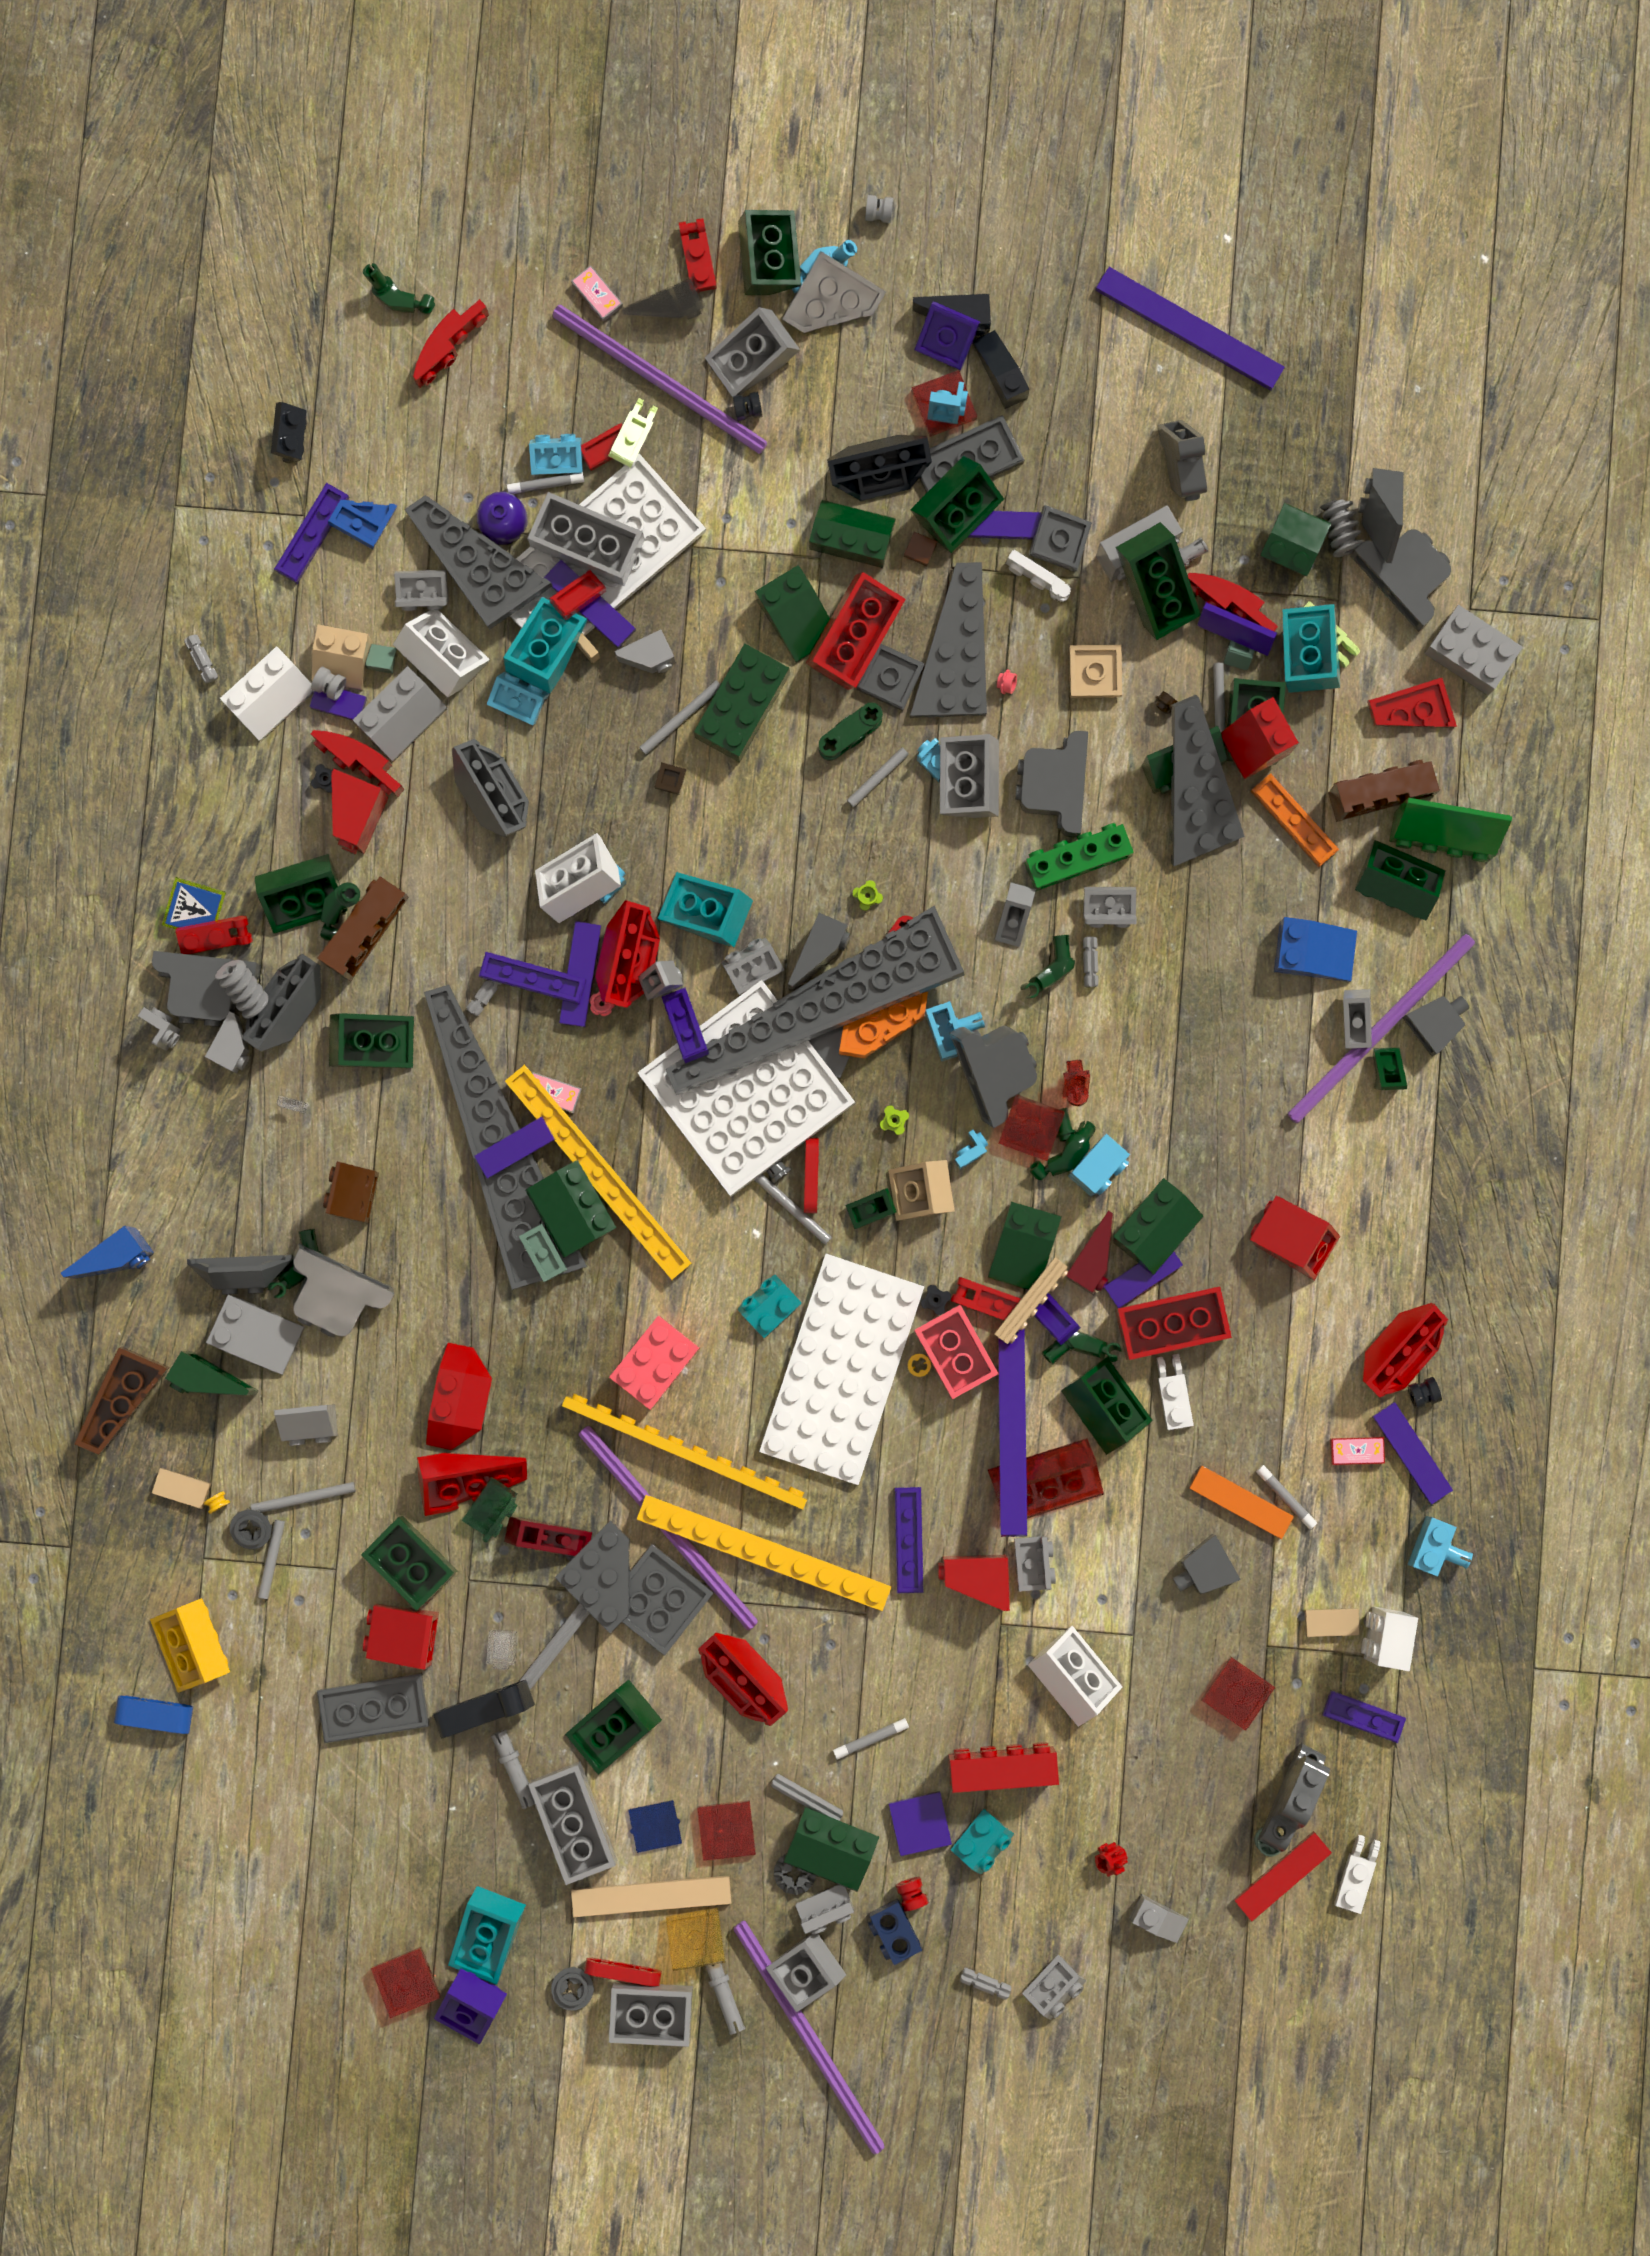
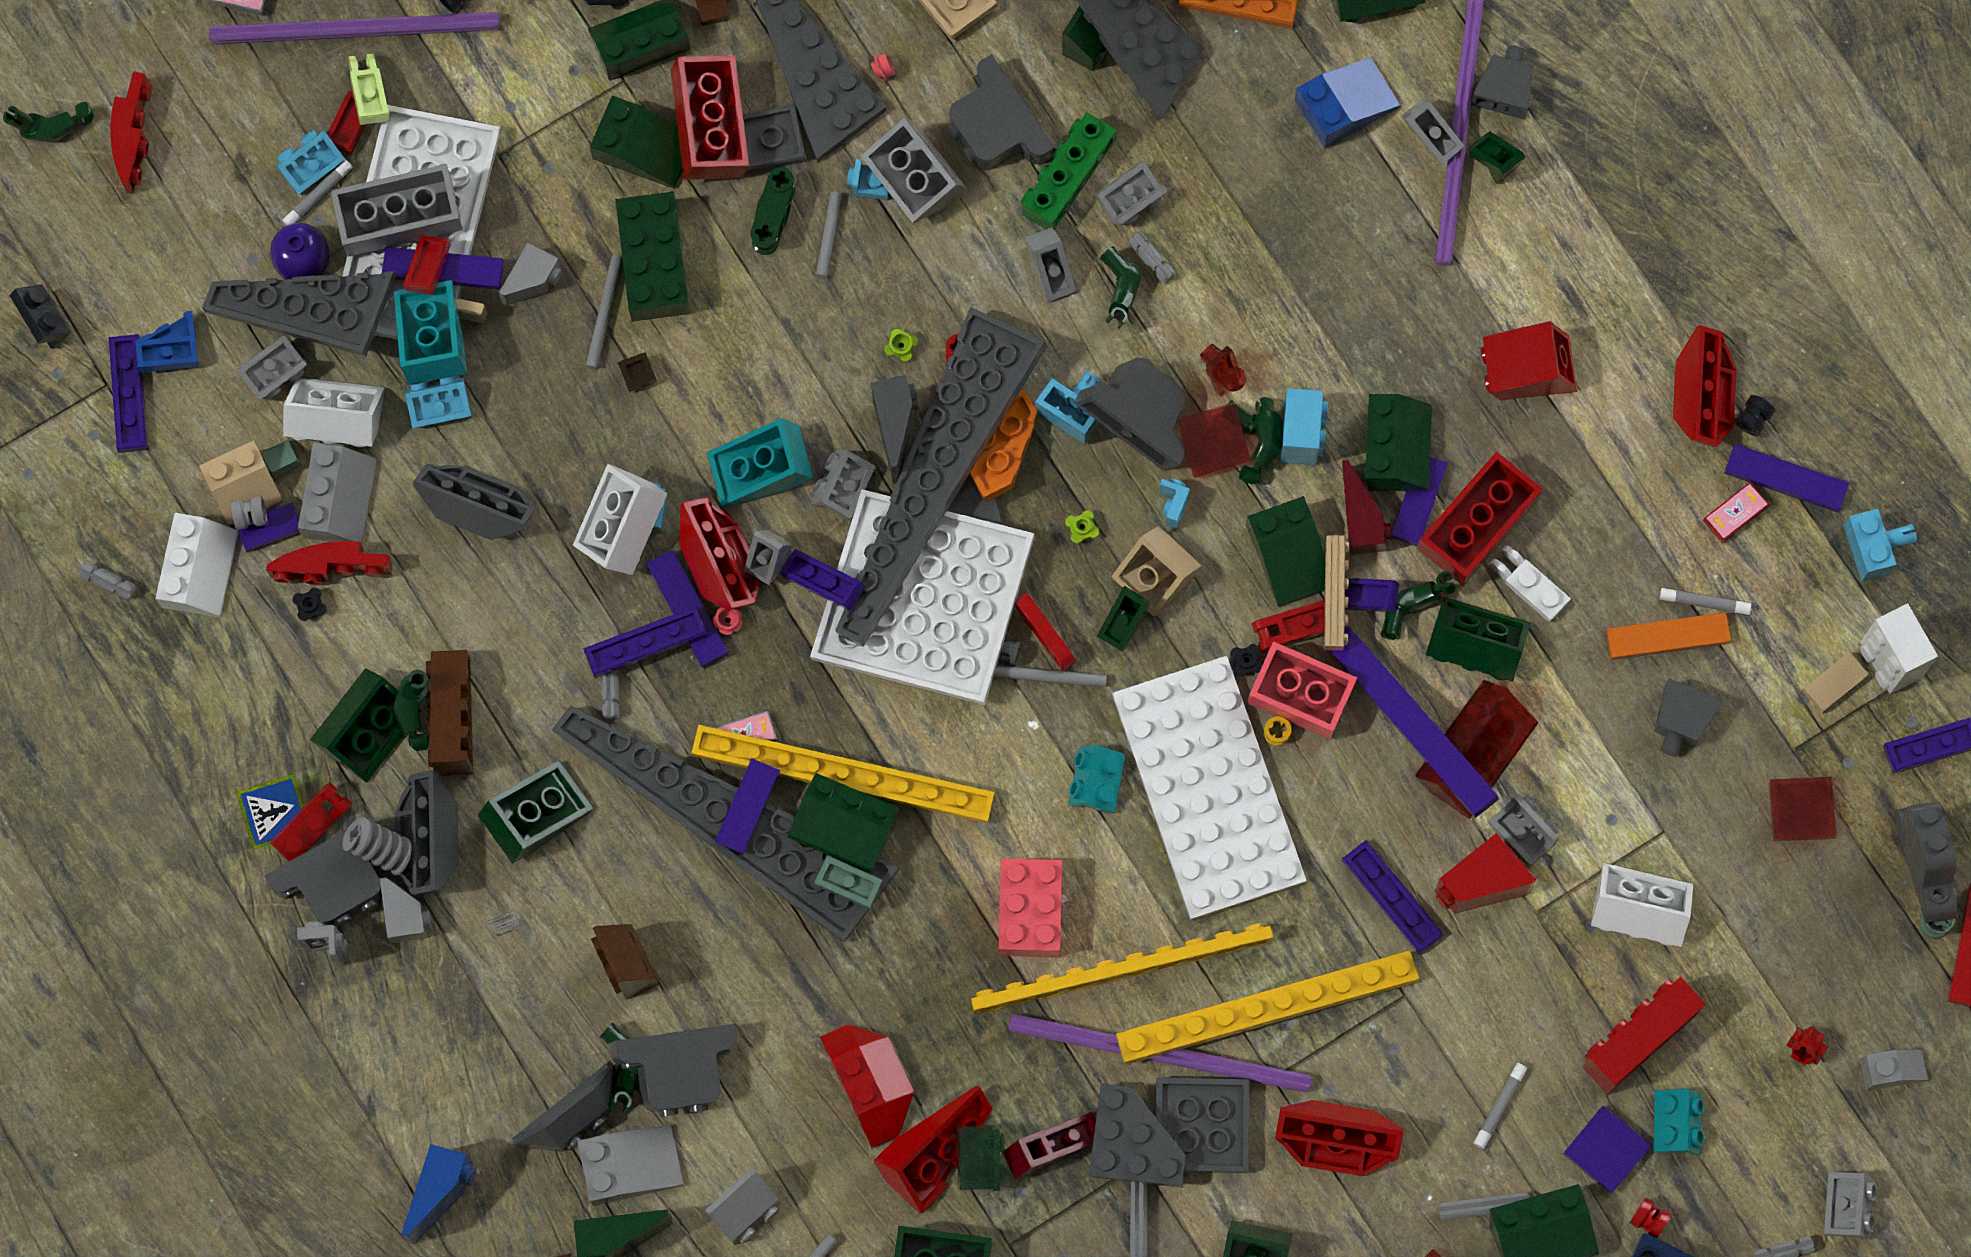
camera: 35 degrees left, 10 degrees down
(355, 811) = (362, 607): red slope -> none

